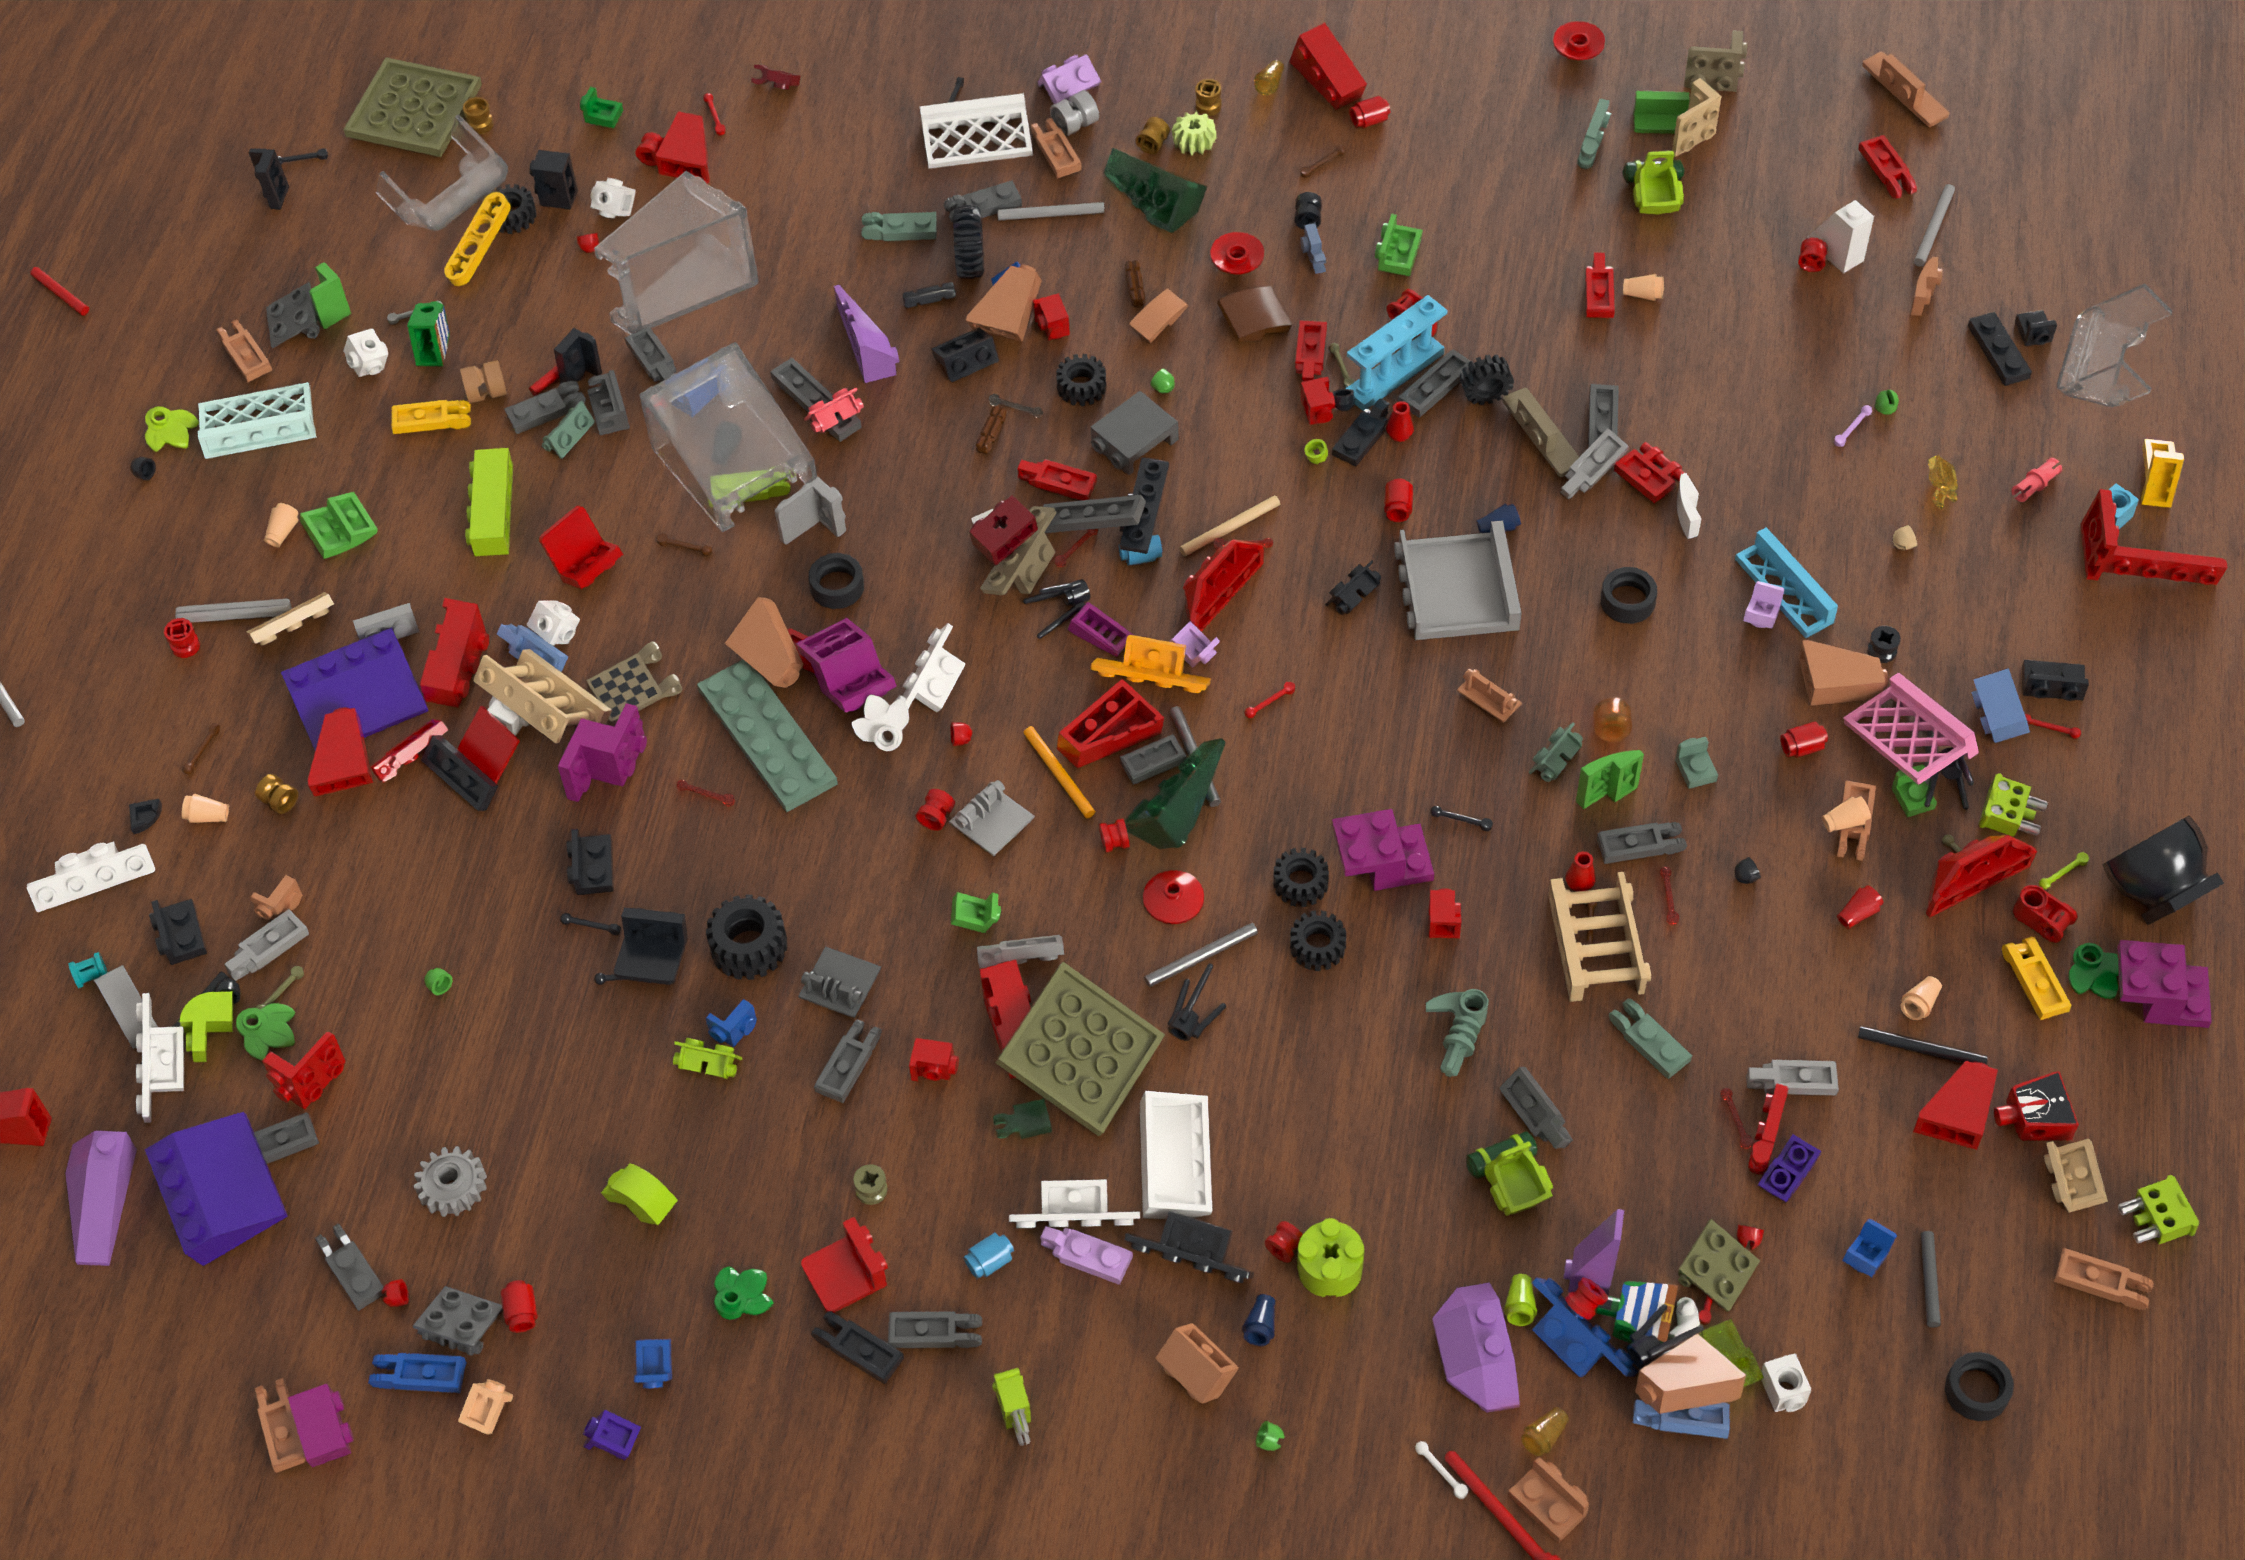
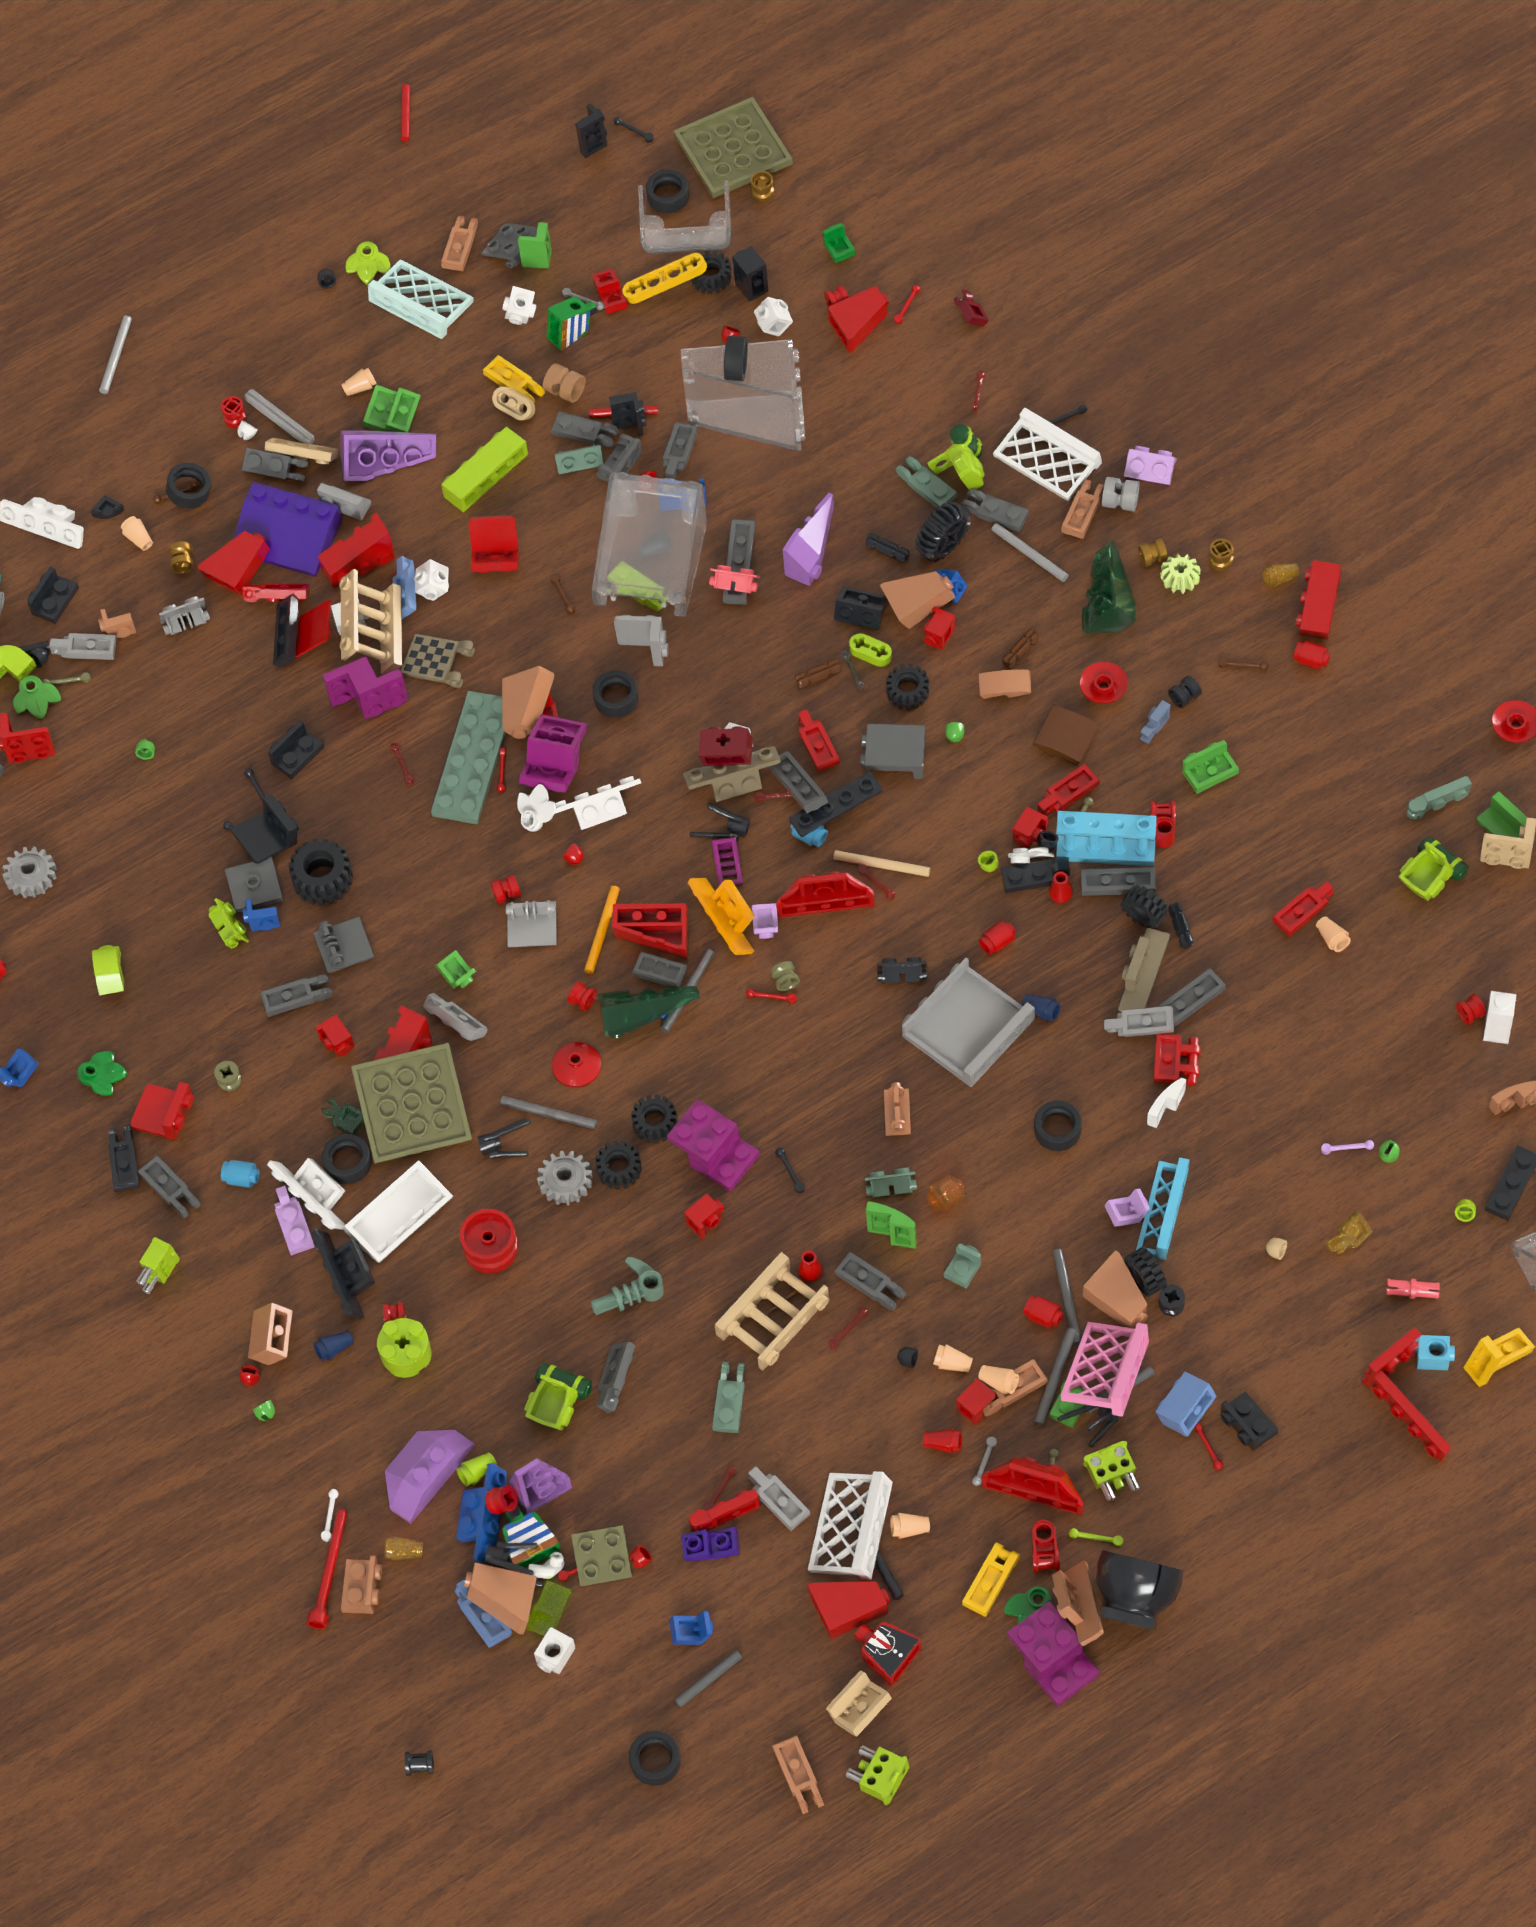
camera: 50 degrees right, 5 degrees up
(210, 745) = (188, 500): none -> black tyre
(212, 642) = (246, 430): none -> white hinge
(275, 651) = (271, 464): none -> dark grey hinge
(342, 838) = (172, 613): none -> light grey hinge
(369, 566) = (381, 452): none -> medium lavender wedge
(395, 163) = (666, 177): none -> black tyre
(430, 287) = (609, 291): none -> red slope
(454, 432) = (515, 404): none -> tan plate
(663, 210) = (735, 358): none -> black tyre
(687, 1003) = (254, 882): none -> dark grey plate
(822, 736) = (501, 787): none -> red hinge
(844, 119) = (980, 375): none -> clear red hinge
(915, 180) = (964, 456): none -> lime piece
(1013, 378) = (870, 650): none -> lime beam
(1072, 1130) = (347, 1141): none -> black tyre
(1218, 1425) = (248, 1378): none -> red hinge
(1266, 672) = (785, 976): none -> olive wheel
(1287, 1006) = (560, 1167): none -> light grey gear
(1292, 1099) = (489, 1241): none -> red wheel
(1338, 425) = (1023, 855): none -> white plate
(1529, 377) = (1180, 925): none -> black axle
(1781, 841) = (952, 1359): none -> light nougat cone
(1802, 714) = (1066, 1294): none -> dark grey bar
(1845, 632) = (1145, 1271): none -> black tyre
(1846, 853) = (974, 1400): none -> red panel
(1875, 779) = (1055, 1376): none -> dark grey bar
(1893, 877) = (991, 1443): none -> light grey hinge
(1899, 1021) = (869, 1532): none -> white fence
(1995, 395) = (1467, 1210): none -> lime hinge
(2139, 920) = (1078, 1601): none -> nougat bracket

